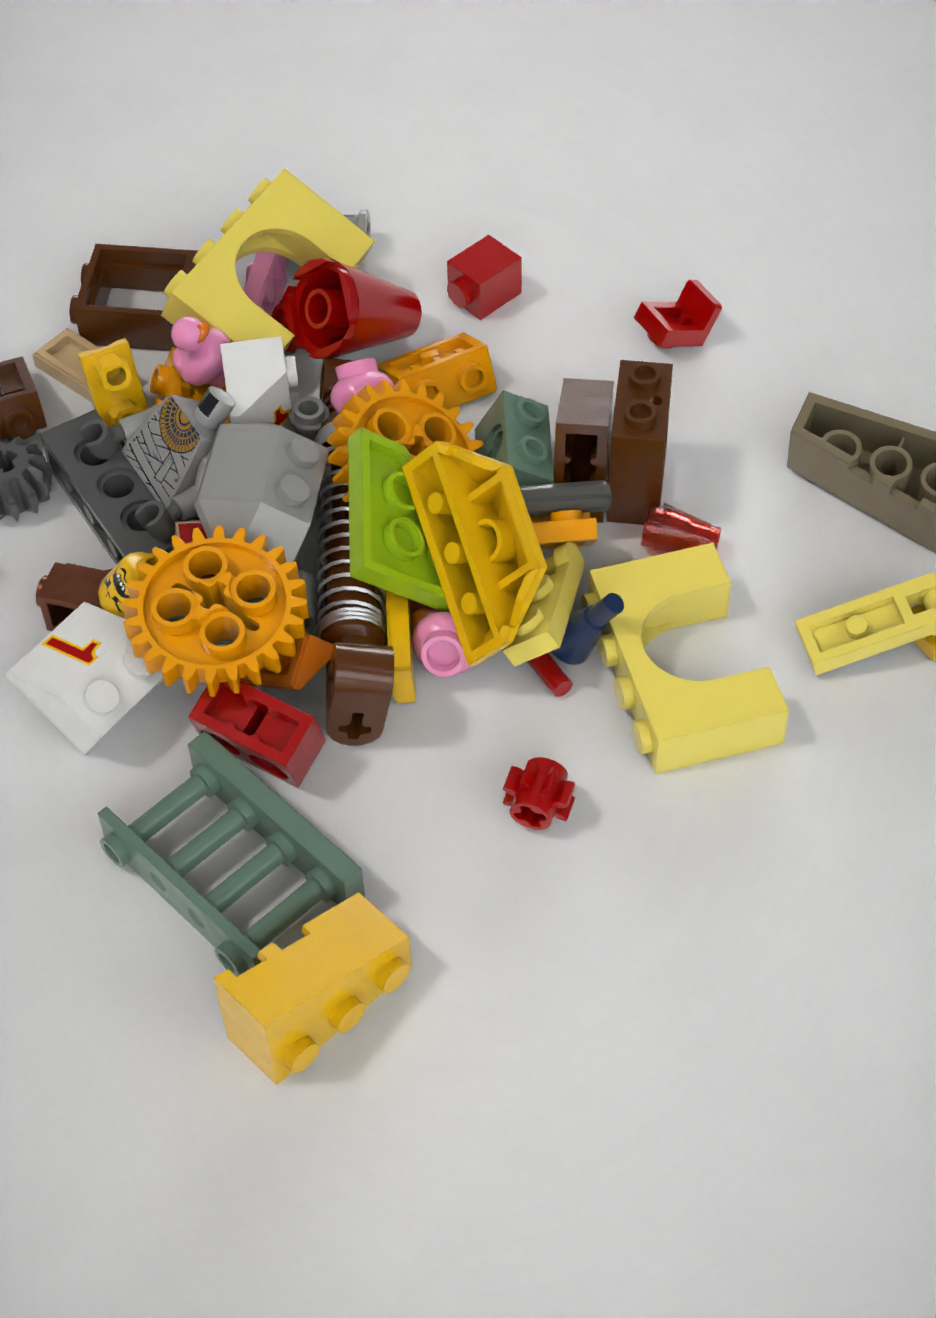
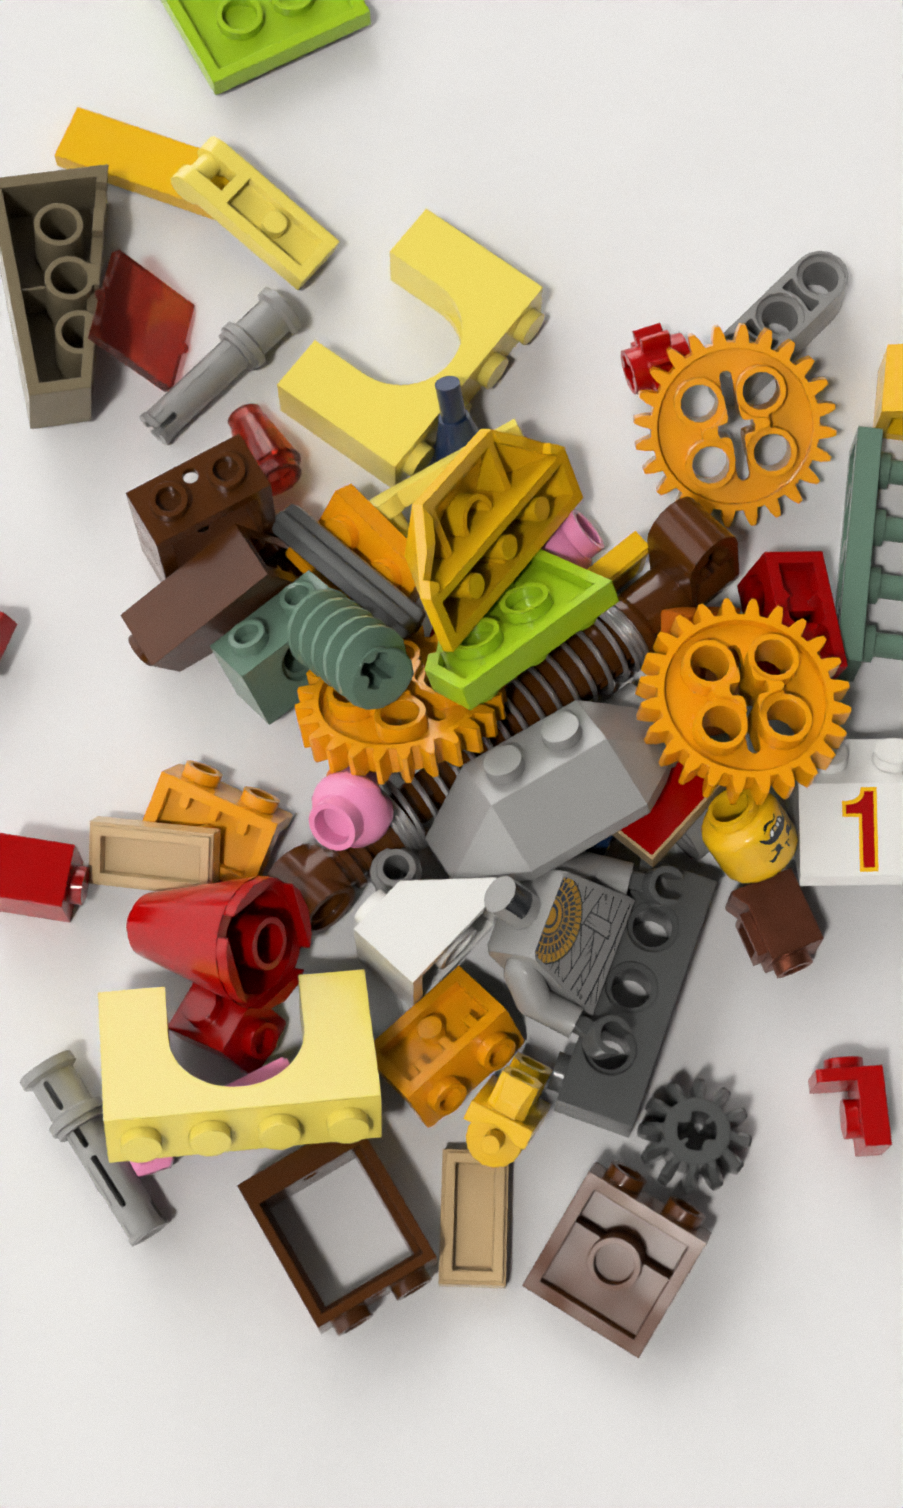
camera: 130 degrees left, 20 degrees up
(198, 351) = (410, 1030): bright pink animal -> none
(437, 789) = (789, 413): none -> light orange gear
(441, 330) = (152, 854): none -> tan tile
(458, 417) = (349, 649): none -> sand green piece
(498, 920) = (793, 307): none -> light grey beam
(771, 562) = (240, 348): none -> light grey pin
(833, 506) = (141, 321): none -> clear red piece

